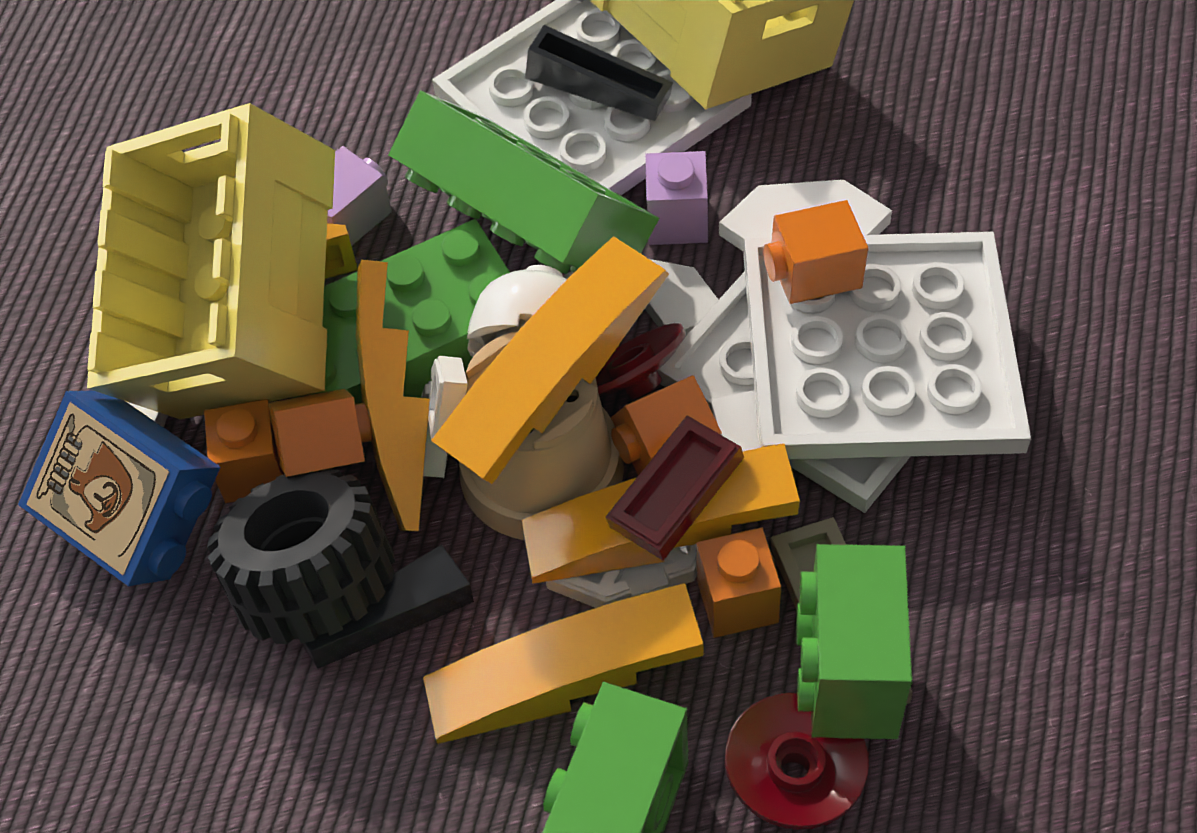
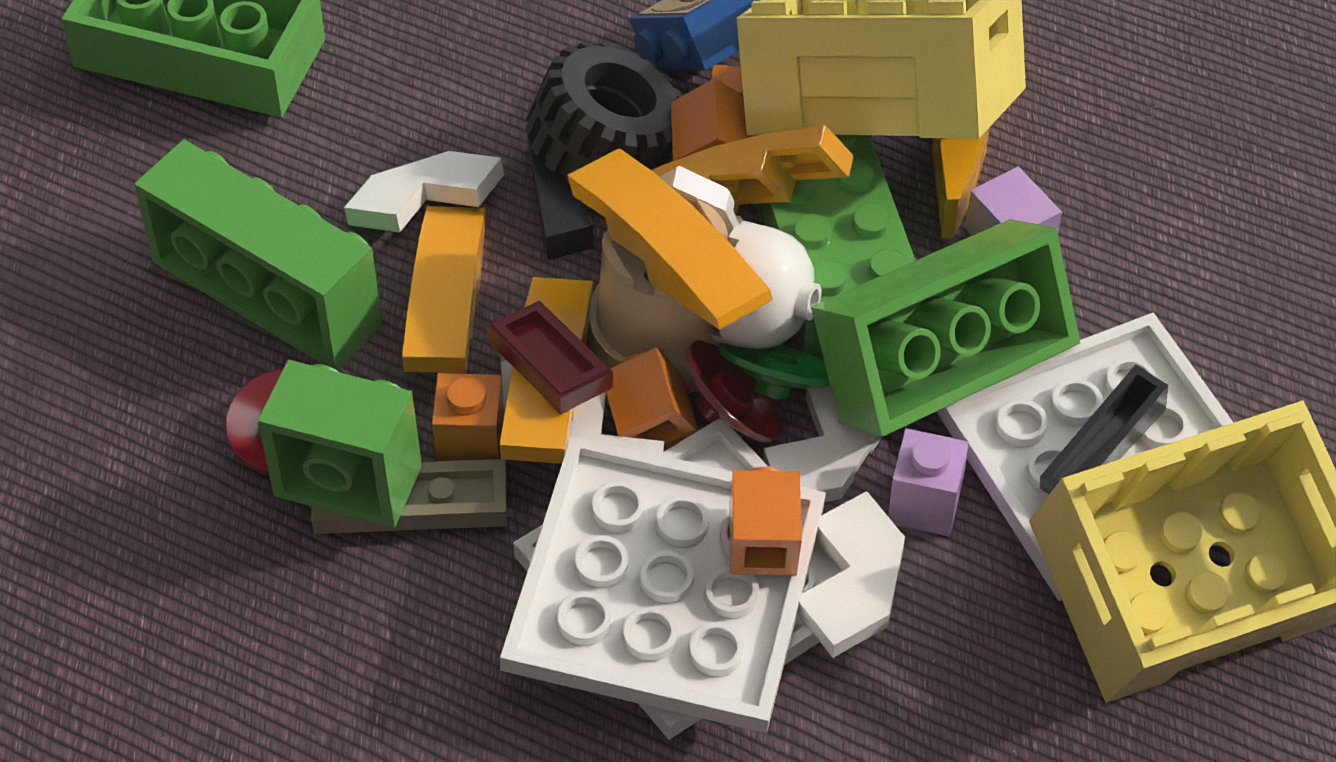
camera: 100 degrees right, 5 degrees down
(426, 769) = (395, 195): none -> white tile

